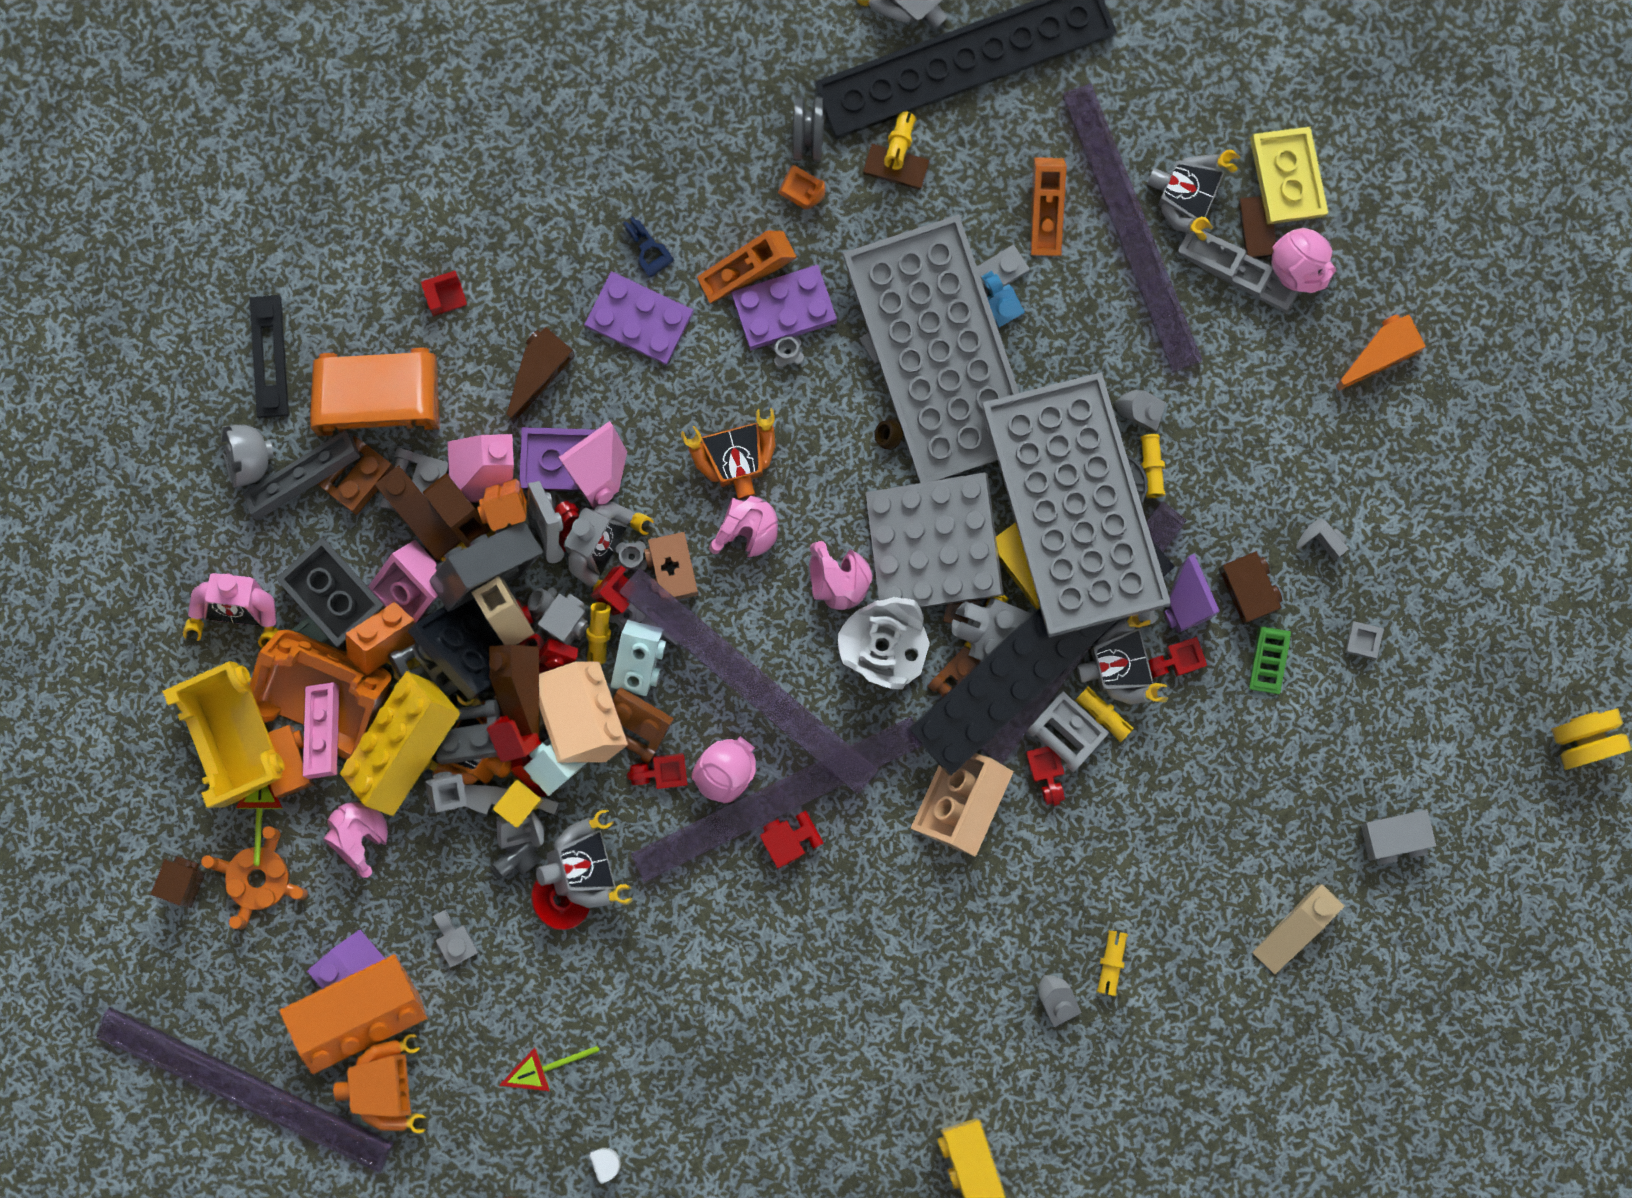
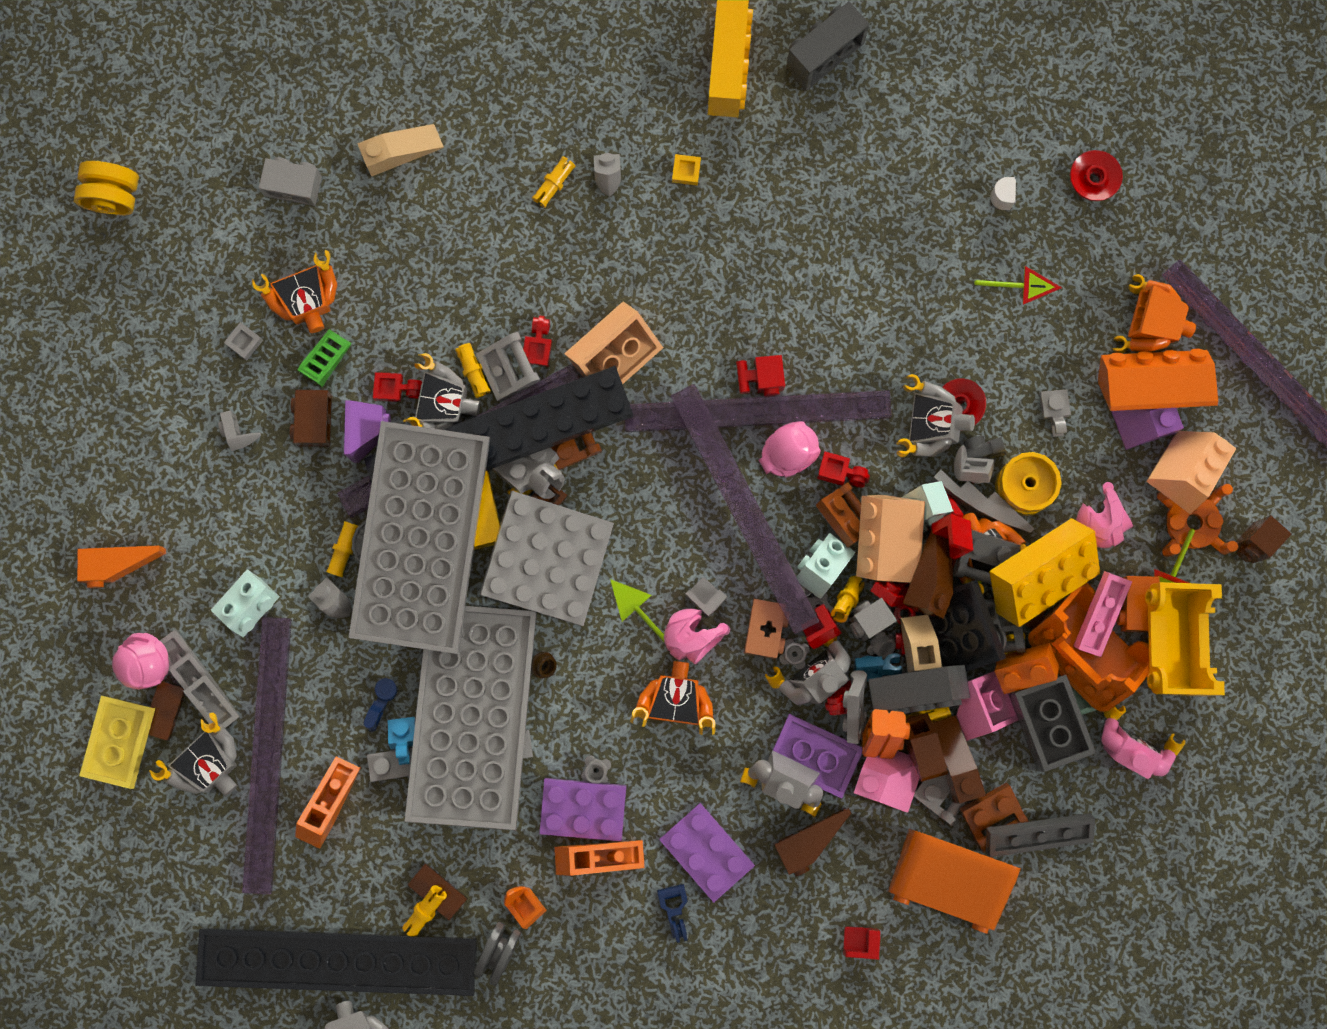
camera: 155 degrees left, 0 degrees up
(245, 454) = (1079, 872): light grey cylinder -> none
(272, 399) = (1016, 990): black container -> none
(283, 930) = (1191, 467): none -> light nougat slope
(446, 791) = (1021, 522): light grey brick -> none
(466, 853) = (1041, 474): none -> yellow wheel
(517, 804) = (968, 485): yellow panel -> none
(540, 575) = (877, 667): none -> dark azure plate
(584, 412) = (787, 782): none -> light grey torso
(597, 464) = (795, 733): bright pink slope -> none
(749, 576) = (706, 597): none -> light grey panel
(835, 541) = (629, 600): none -> lime piece
(842, 586) = (644, 561): bright pink helmet -> none
(900, 627) = (626, 474): white piece -> none
(971, 1040) = (686, 169): none -> yellow plate
(1041, 340) = (385, 691): none -> dark blue piece
(1226, 365) = (245, 603): none -> light aqua brick
(1325, 716) = (303, 294): none -> torso

